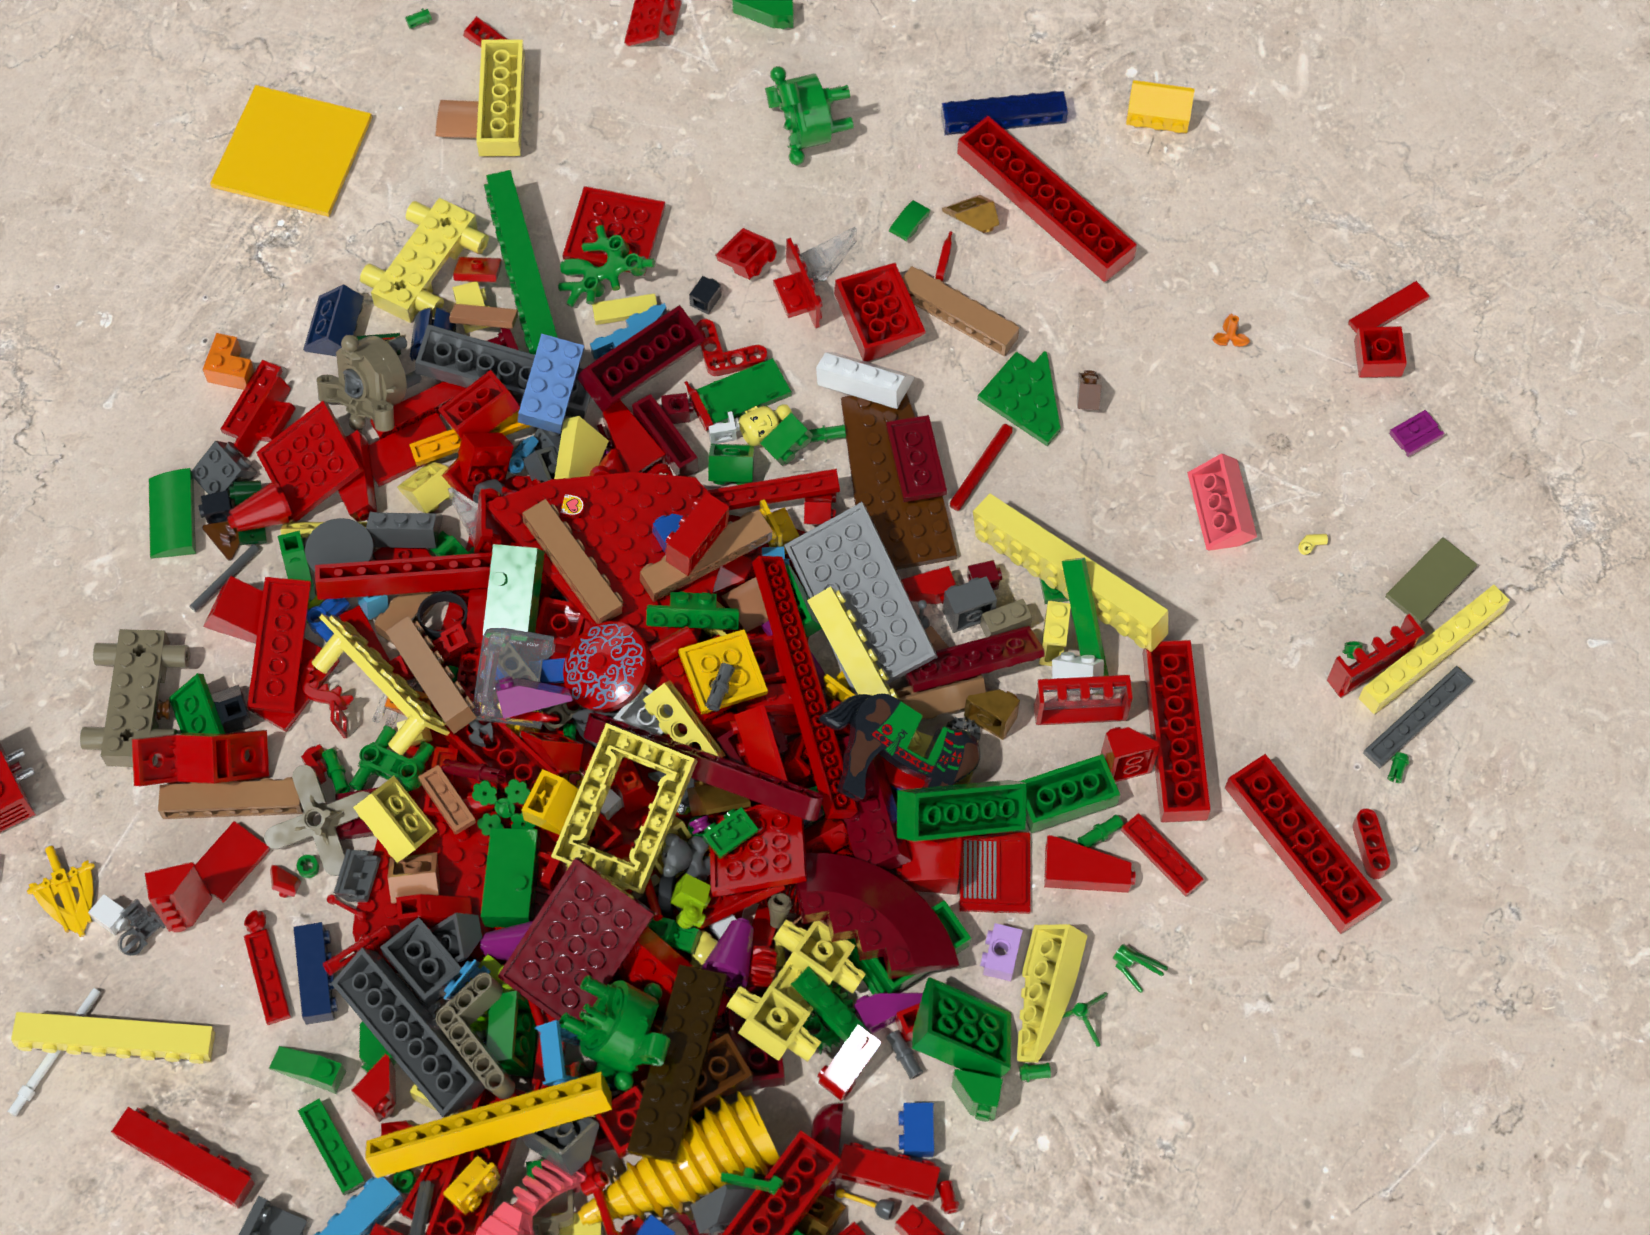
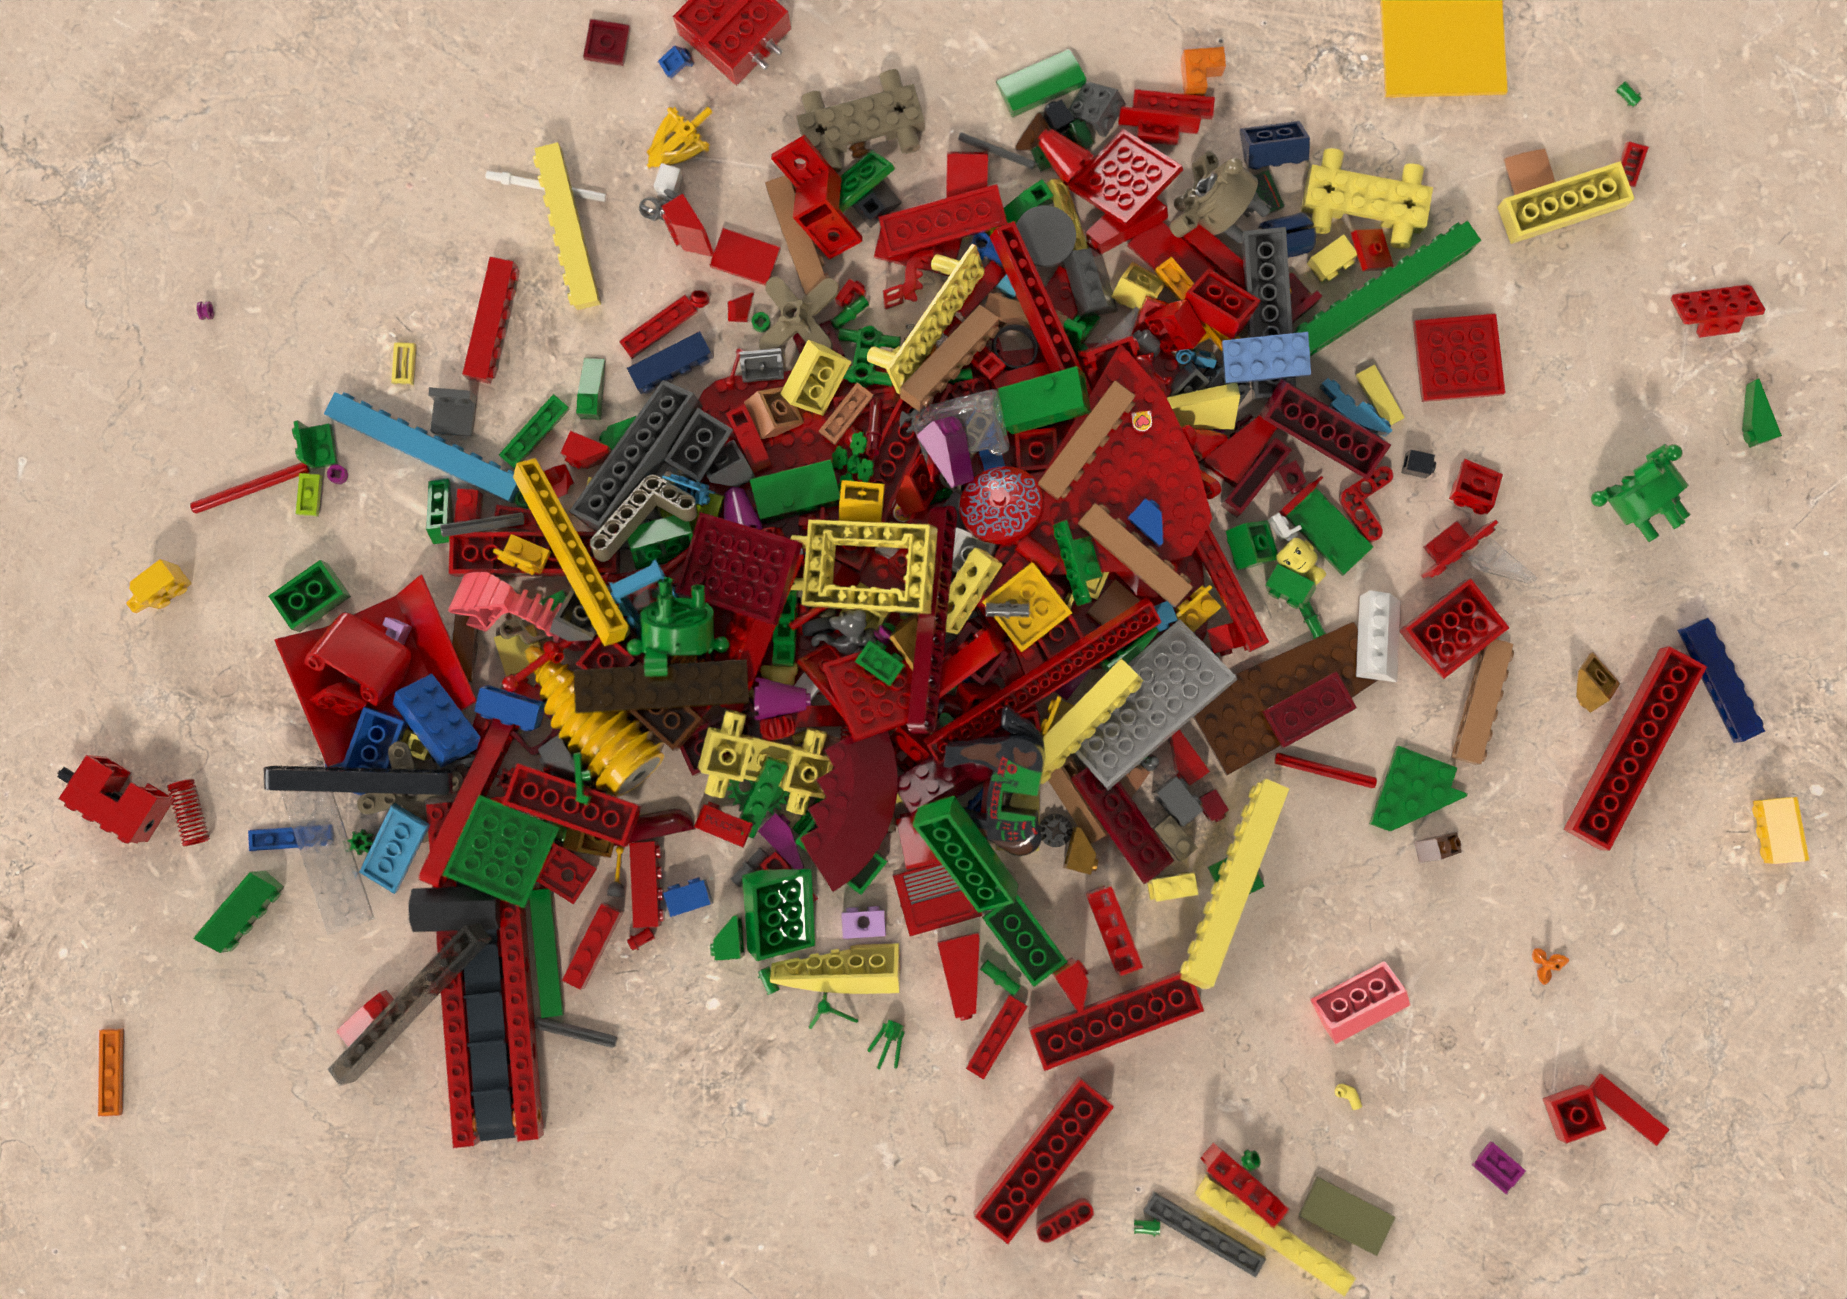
camera: 75 degrees right, 20 degrees up
(380, 935) = (704, 395): red pin -> none
(483, 316) = (1320, 273): nougat tile -> none
(616, 264) = (1411, 370): green plant -> none
(692, 897) = (819, 649): lime brick -> none
(696, 533) = (1142, 540): red brick -> none
(779, 907) = (835, 724): dark tan cone -> none
(908, 220) = (1567, 626): green slope -> none
(944, 257) = (1535, 671): red piece -> none
(1072, 666) = (1142, 917): white brick -> none
(1083, 609) = (1184, 913): green tile -> none

